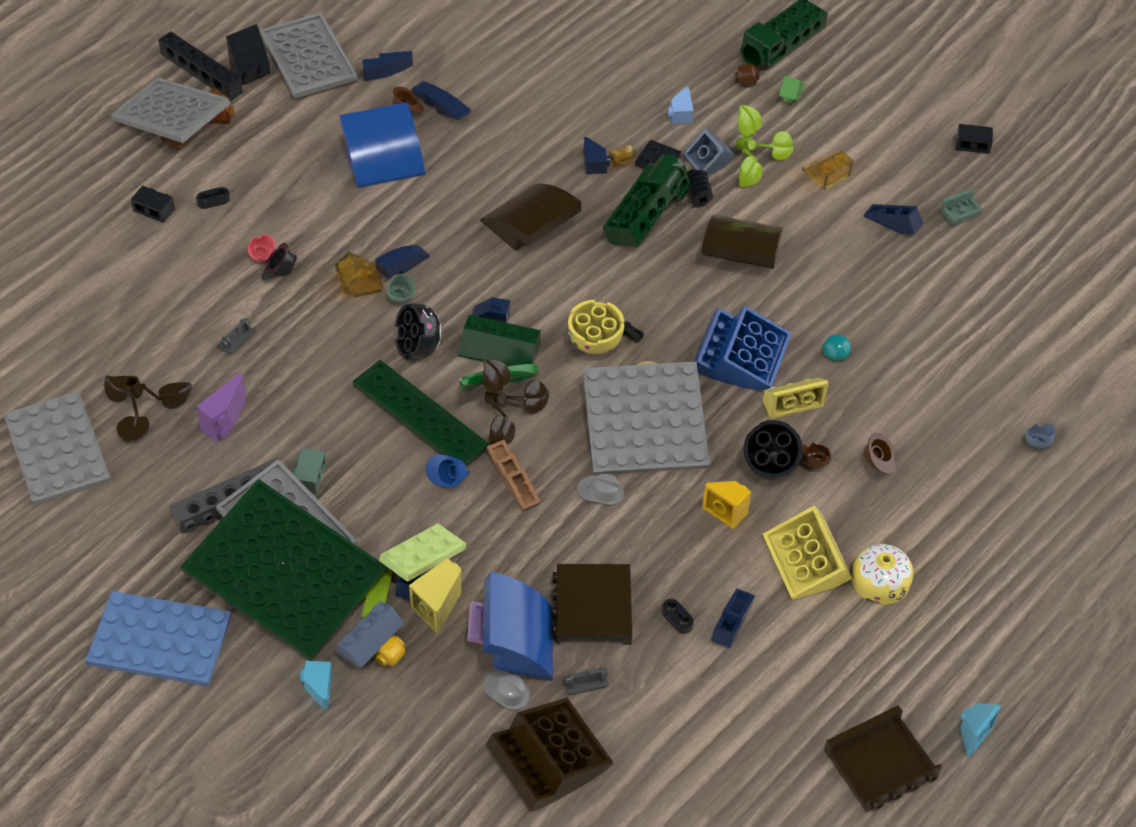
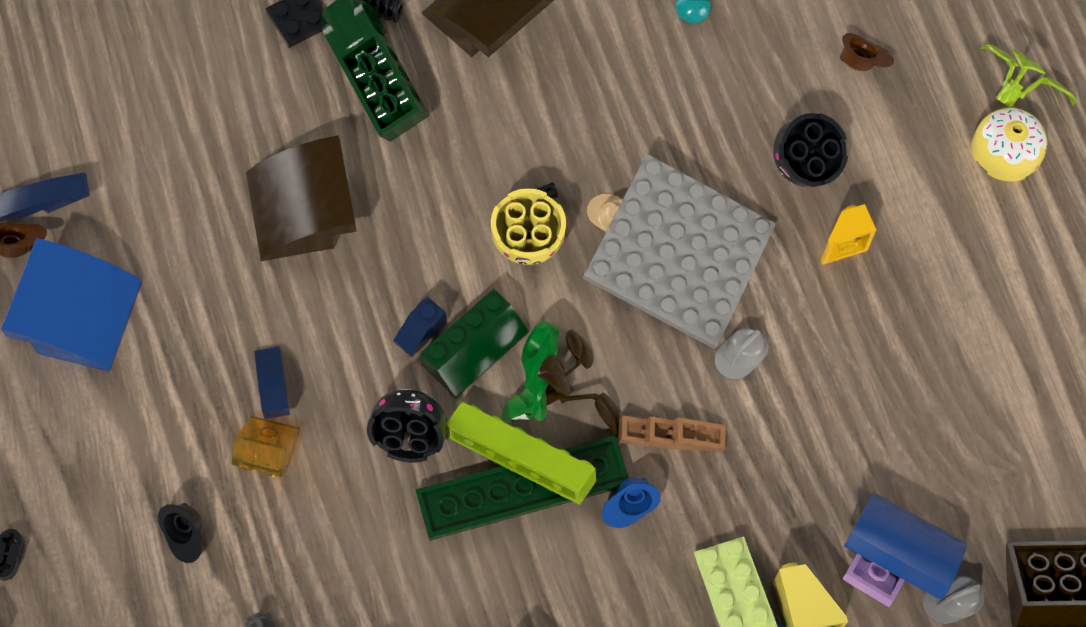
camera: 60 degrees left, 15 degrees up
(261, 248) = (144, 537): coral hair -> none
(400, 289) = (321, 408): sand green hair -> none
(438, 396) = (521, 452): none -> lime brick
(586, 680) = (987, 509): dark grey hinge -> none
(593, 601) = (897, 447): dark brown panel -> none
(595, 157) = (253, 82): dark blue slope -> none
(622, 156) = (272, 50): clear yellow hair -> none
(680, 614) = (953, 365): black beam -> none
(732, 618) = (987, 317): dark blue slope -> none
(742, 349) = (640, 99): blue slope -> none
(795, 397) = (737, 85): light yellow slope -> none
(807, 554) = (948, 200): light yellow slope -> none
(816, 456) = (831, 107): reddish brown hair -> none
(926, 554) = (1012, 89): none -> lime plant

